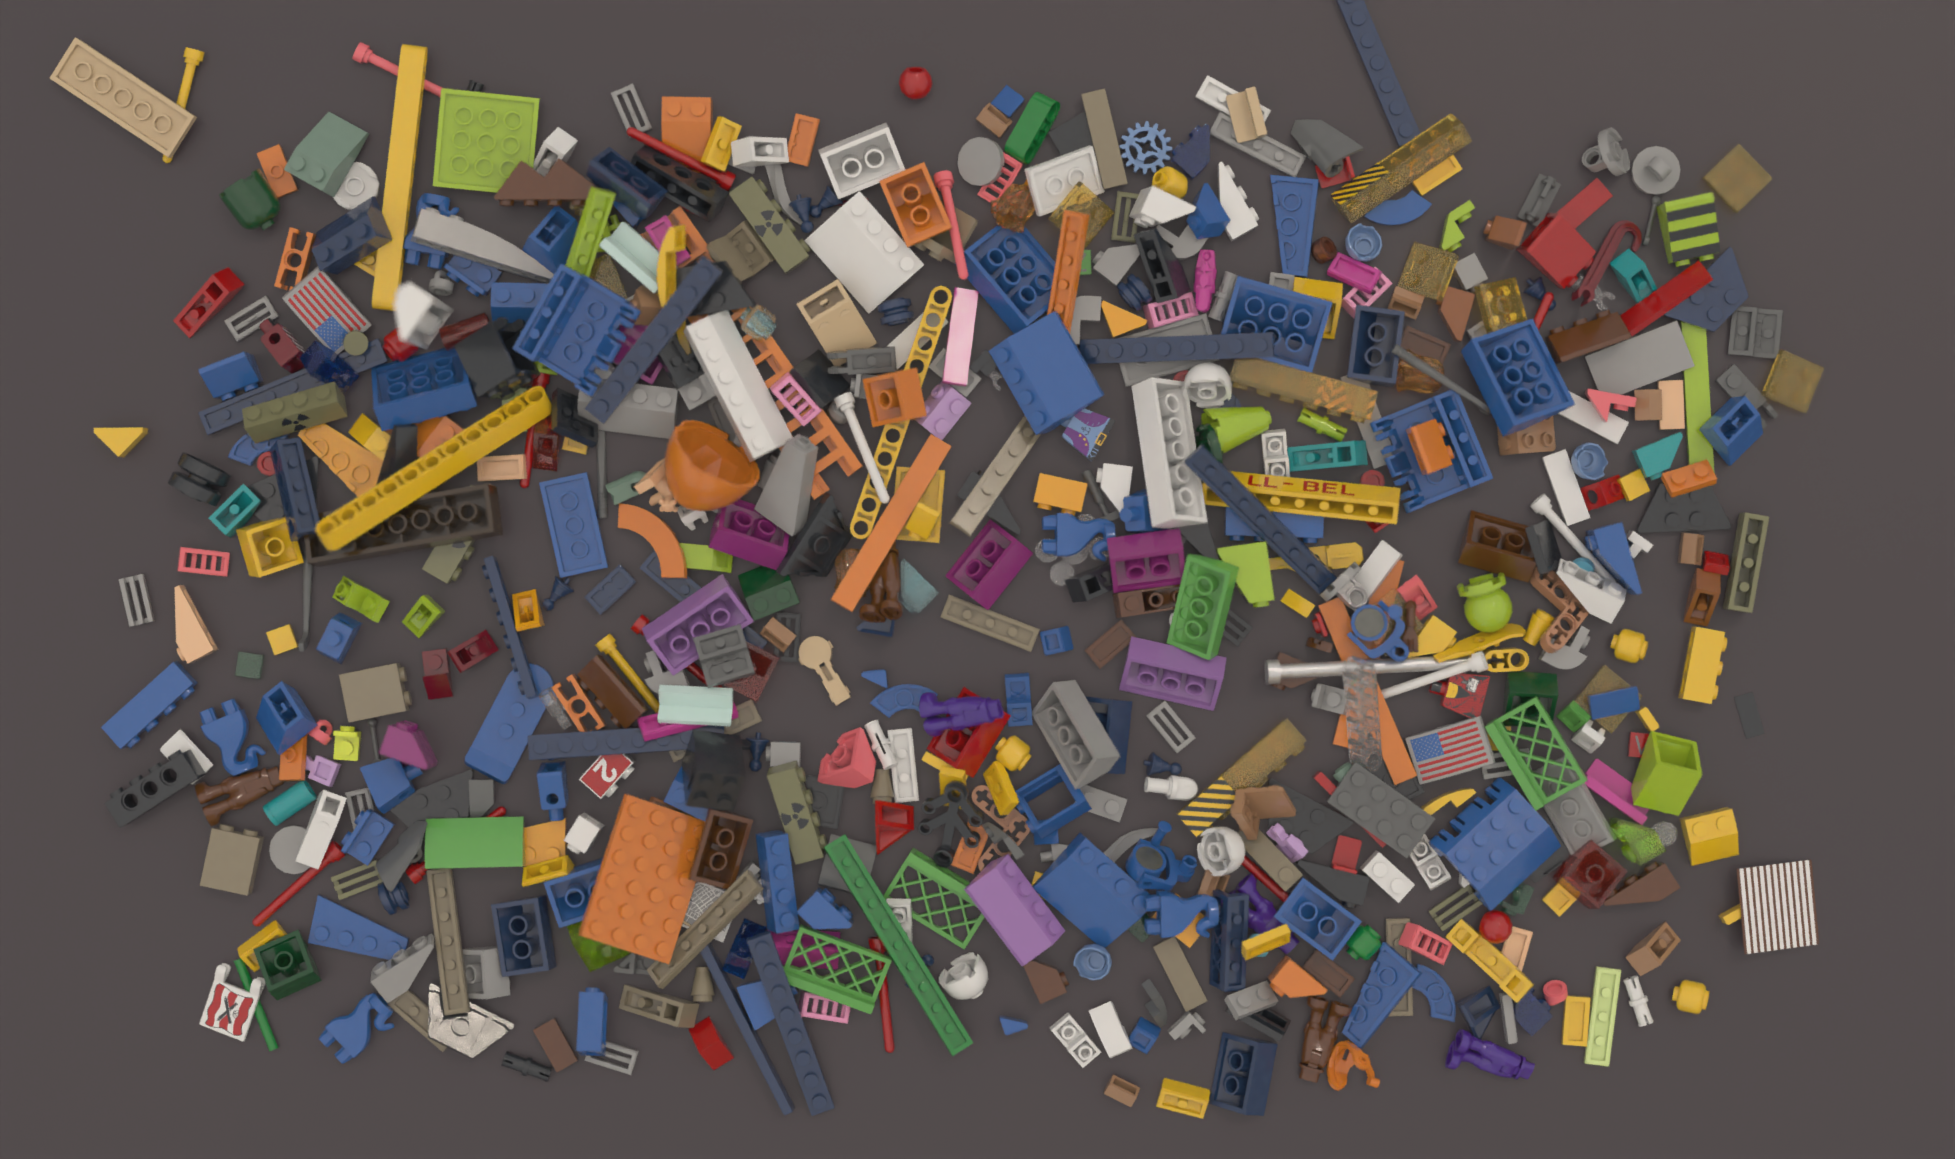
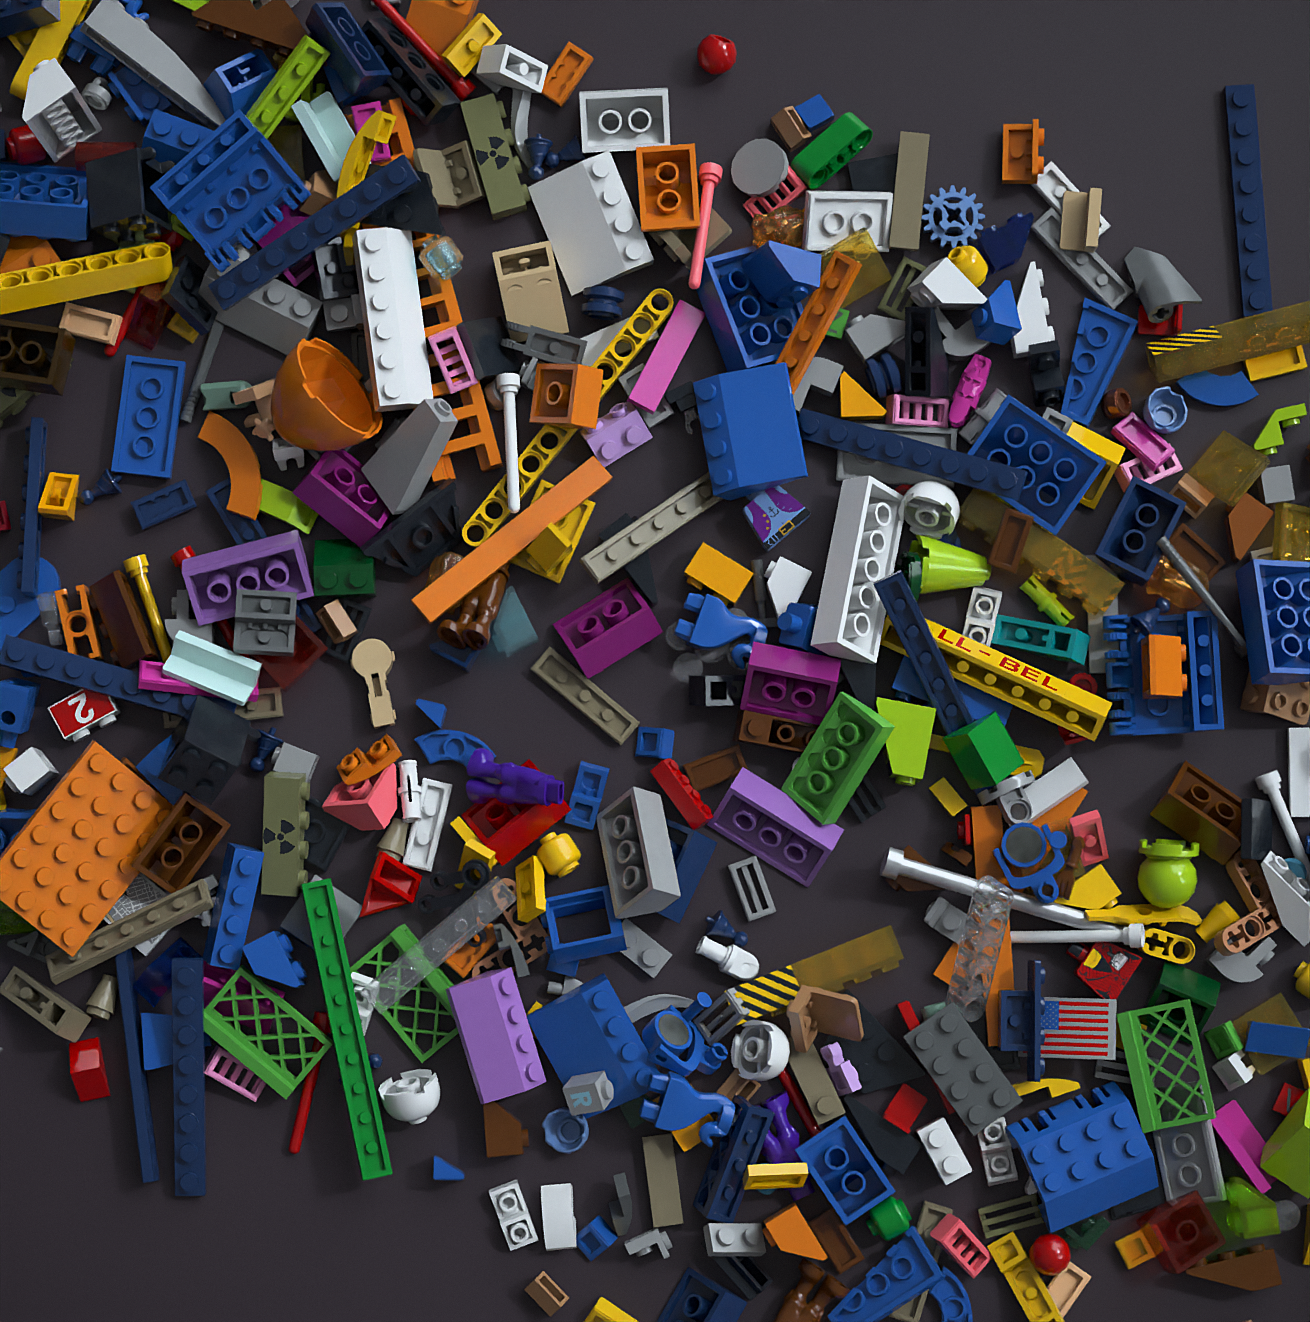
camera: 20 degrees right, 5 degrees down
(838, 737) = (361, 765): none -> orange slope
(946, 856) = (438, 944): none -> clear tile
(1029, 241) = (783, 273): none -> blue slope
(1091, 673) = (682, 794): none -> red piece
(1101, 929) = (588, 1093): none -> light grey brick
(1181, 77) = (1020, 153): none -> orange bracket
(1189, 823) = (735, 1005): none -> light grey tile
(1260, 246) = (1045, 373): none -> black slope
(1278, 388) = (1010, 540): none -> reddish brown tile
(1314, 560) = (984, 751): none -> green slope
(1404, 413) = (1145, 621): none -> dark blue piece
(1413, 758) = (1021, 1020): none -> dark blue bracket

